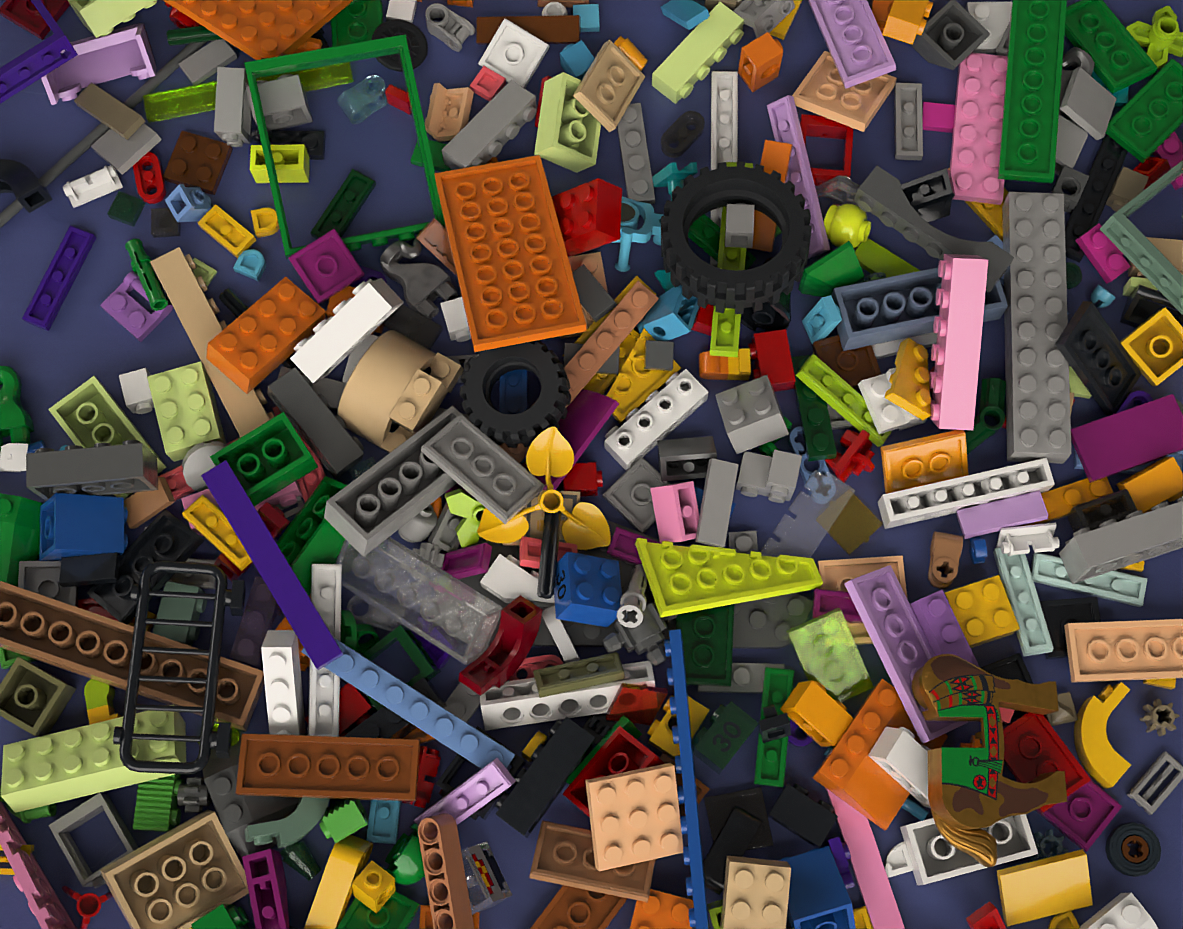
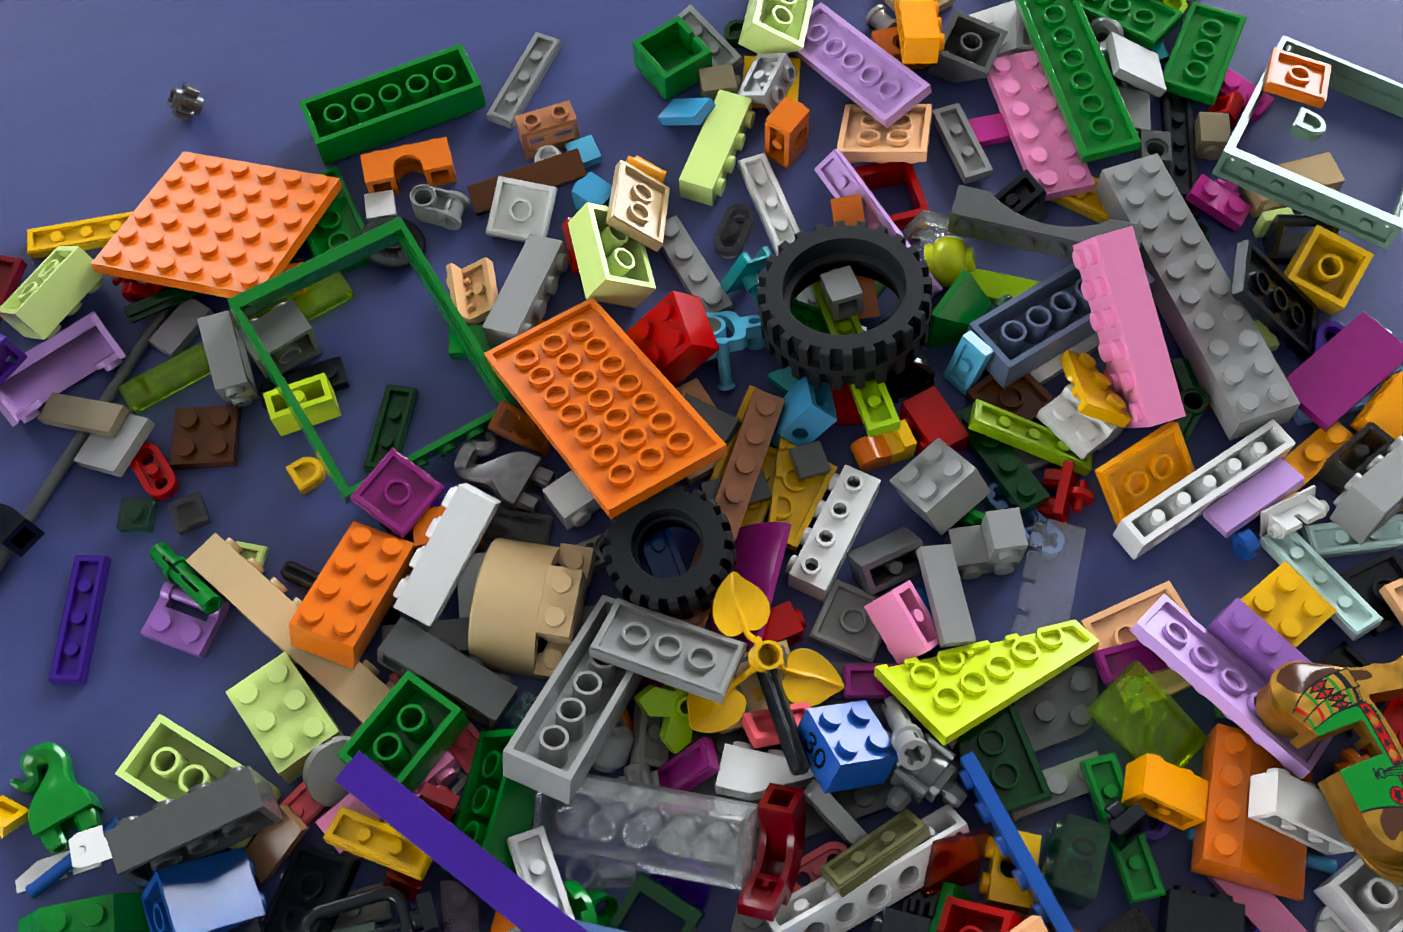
camera: 20 degrees left, 10 degrees down
(92, 186) = (89, 503): white hinge -> none
(137, 391) = (219, 715): white brick -> none
(194, 198) = (216, 476): medium blue brick -> none
(226, 231) = (265, 498): yellow plate -> none
(250, 264) = (305, 526): medium azure tile -> none
(362, 100) = (373, 310): clear light blue piece -> none
(398, 98) = (413, 295): red tile -> none
(487, 84) = (504, 249): coral plate -> none
(743, 541) = (990, 629): light grey plate -> none
(854, 525) = (1100, 570): clear yellow piece -> none
(944, 554) = (1212, 563): medium nougat piece -> none
(1102, 294) = (1232, 241): medium azure hinge -> none

